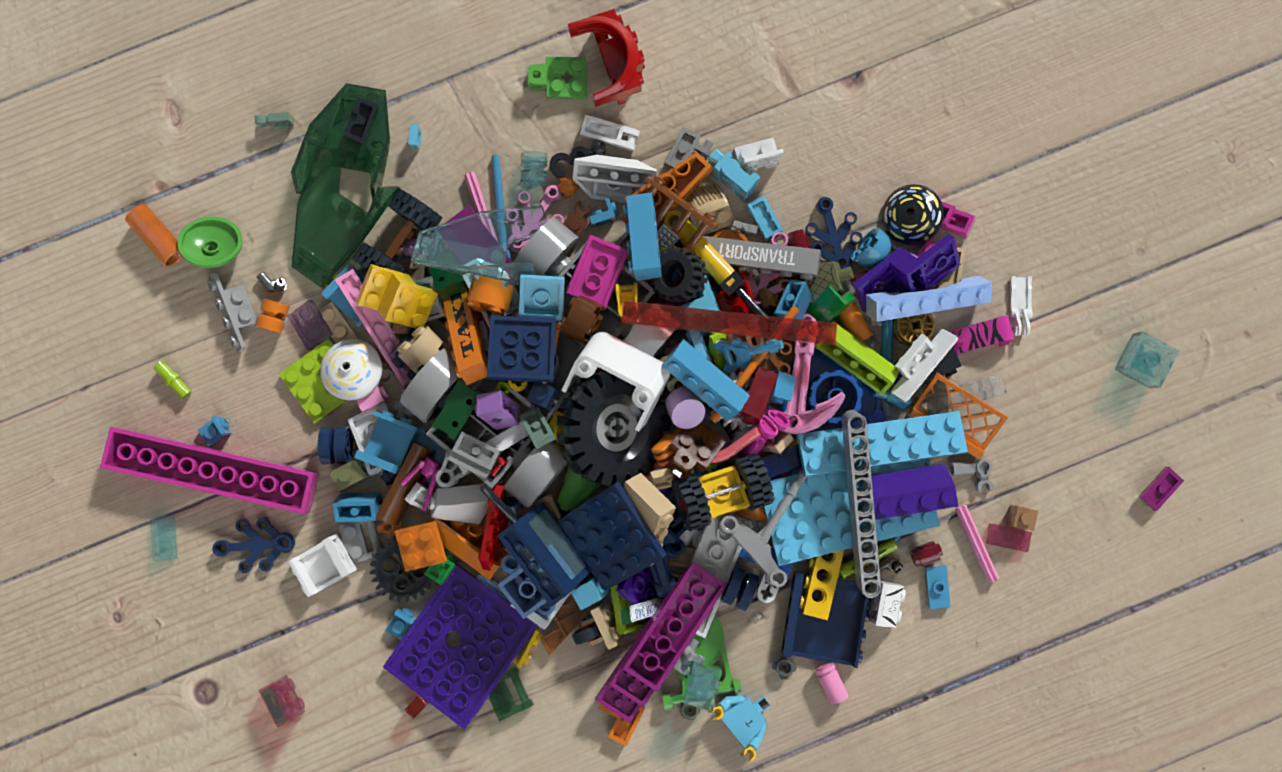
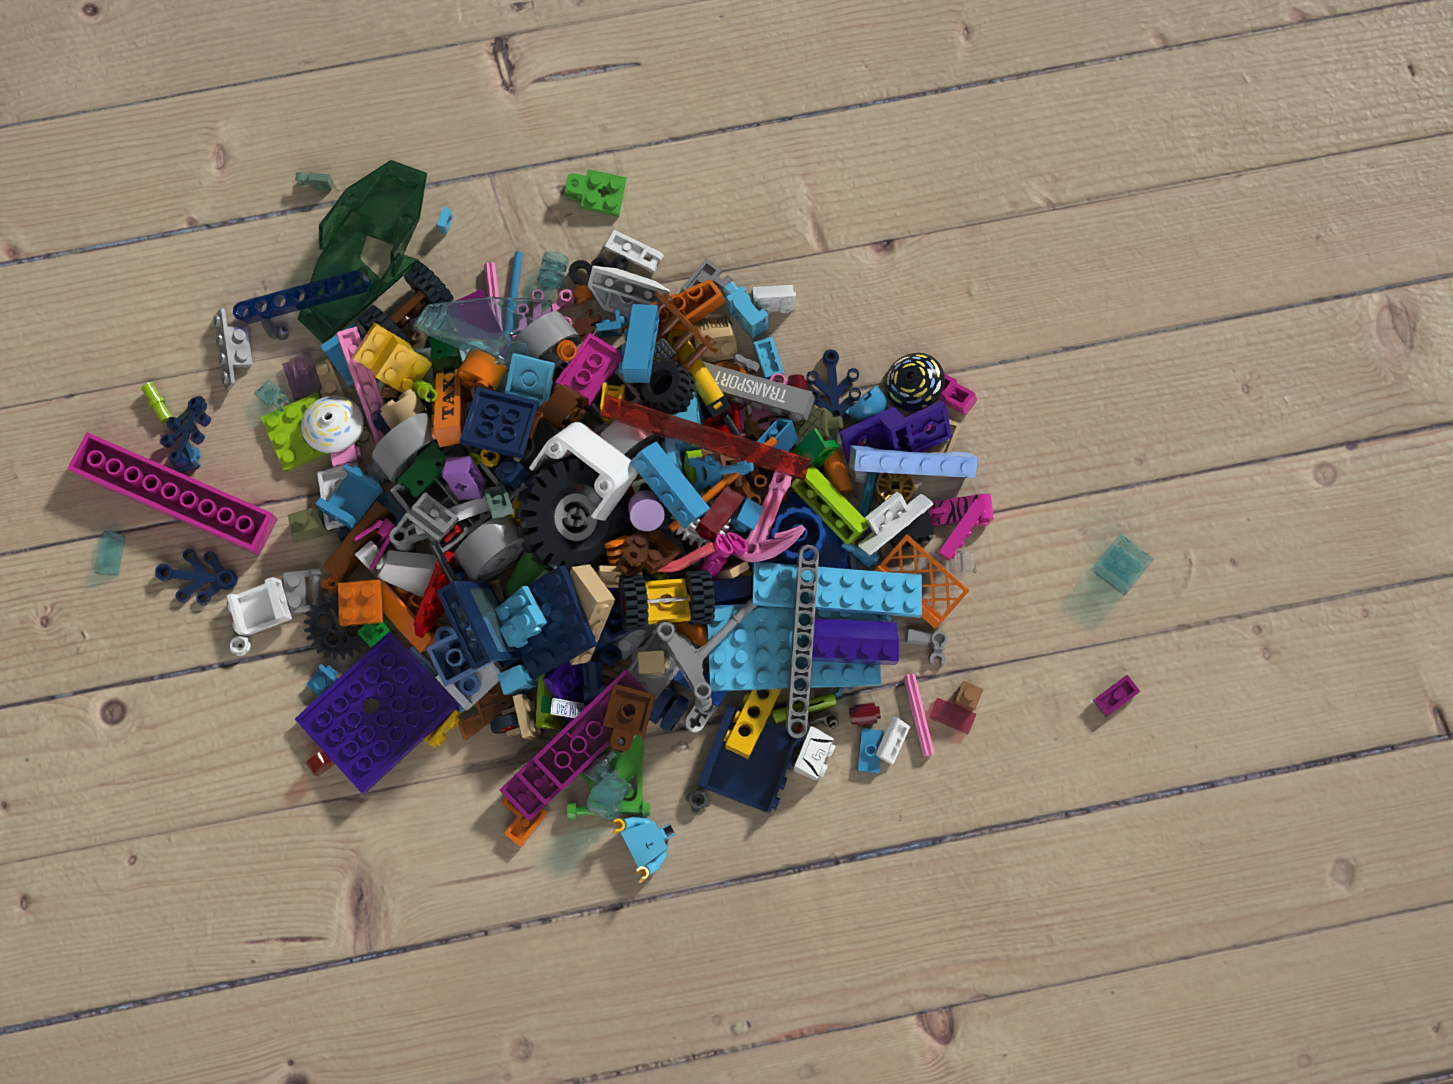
camera: 15 degrees right, 10 degrees down
(155, 236) = (174, 264): orange piece -> none
(210, 234) = (225, 280): bright green dish -> none
(212, 377) = (196, 407): none -> dark blue plant
(272, 315) = (268, 359): orange wheel -> none
(281, 248) = (292, 296): none -> clear blue beam
(282, 701) = (187, 731): clear pink slope -> none
(284, 350) = (272, 394): none -> clear light blue plate
(310, 609) = (240, 640): none -> white plate
(335, 445) = (299, 492): dark blue wheel -> none
(356, 507) = (305, 556): dark azure brick -> none
(358, 129) = (391, 202): black brick -> none
(437, 325) = (425, 390): none -> lime pin
(502, 699) = (406, 774): clear green plate -> none
(571, 258) = (566, 350): none -> orange plate
(583, 538) = (520, 617): none -> medium azure plate
(619, 54) = (658, 178): red piece -> none
(690, 715) = (593, 830): dark tan plate -> none
(706, 619) = (623, 726): none -> reddish brown plate
(717, 549) = (653, 663): none -> tan brick
(831, 683) = (742, 825): bright pink piece -> none
(937, 403) = (902, 563): clear smoke plate -> none
(957, 574) = (892, 740): none -> white plate
(989, 357) = (962, 530): none -> dark pink piece
(1021, 303) = (1008, 486): white arm -> none

